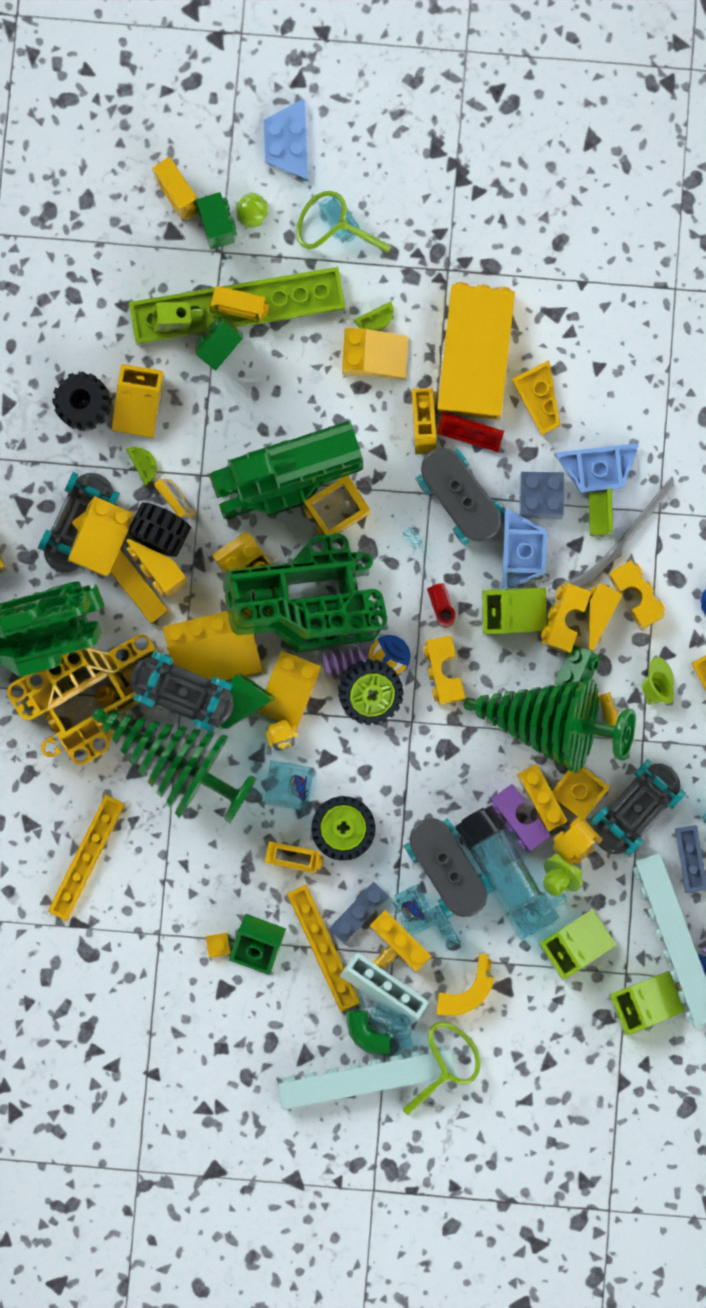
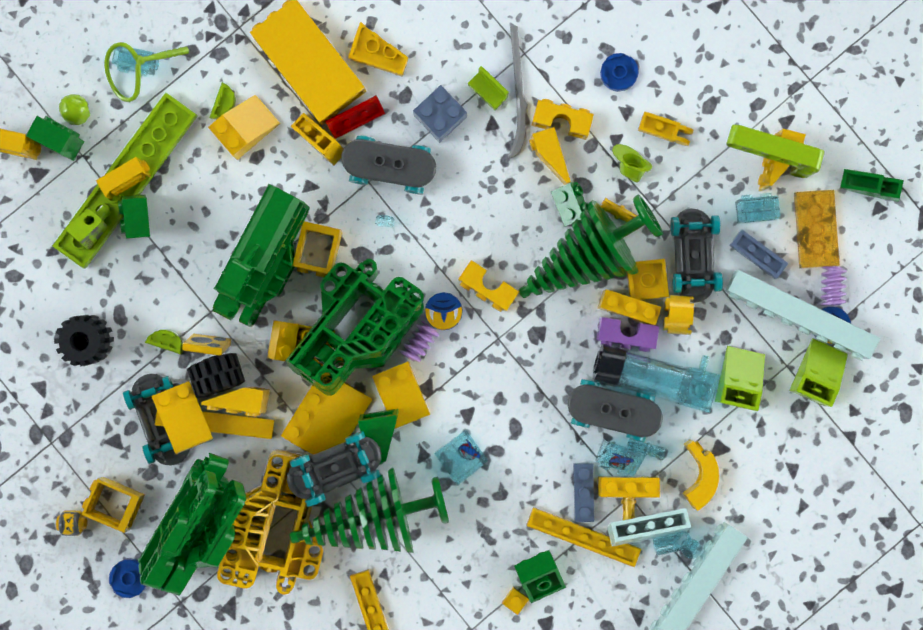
camera: 45 degrees left, 5 degrees up
(105, 695) = (287, 515): yellow plate -> none
(137, 400) = (120, 303): yellow slope -> none
(281, 735) = (425, 429): yellow head -> none
(286, 140) = (52, 41): light blue wing -> none
(315, 862) = (525, 487): yellow window -> none
(332, 815) = (537, 450): wheel -> none
(363, 1036) = (662, 568): green cylinder -> none
(374, 707) = (442, 343): wheel -> none
(441, 603) = (443, 245): red piece -> none
(444, 1075) = (742, 545): lime piece -> none
(513, 610) = (494, 205): lime slope -> none
(522, 550) = (463, 161): light blue wing -> none
(556, 633) = (535, 192): yellow arch -> none
(561, 876) = (690, 346): lime plate -> none
(599, 467) = (459, 60): light blue wing -> none

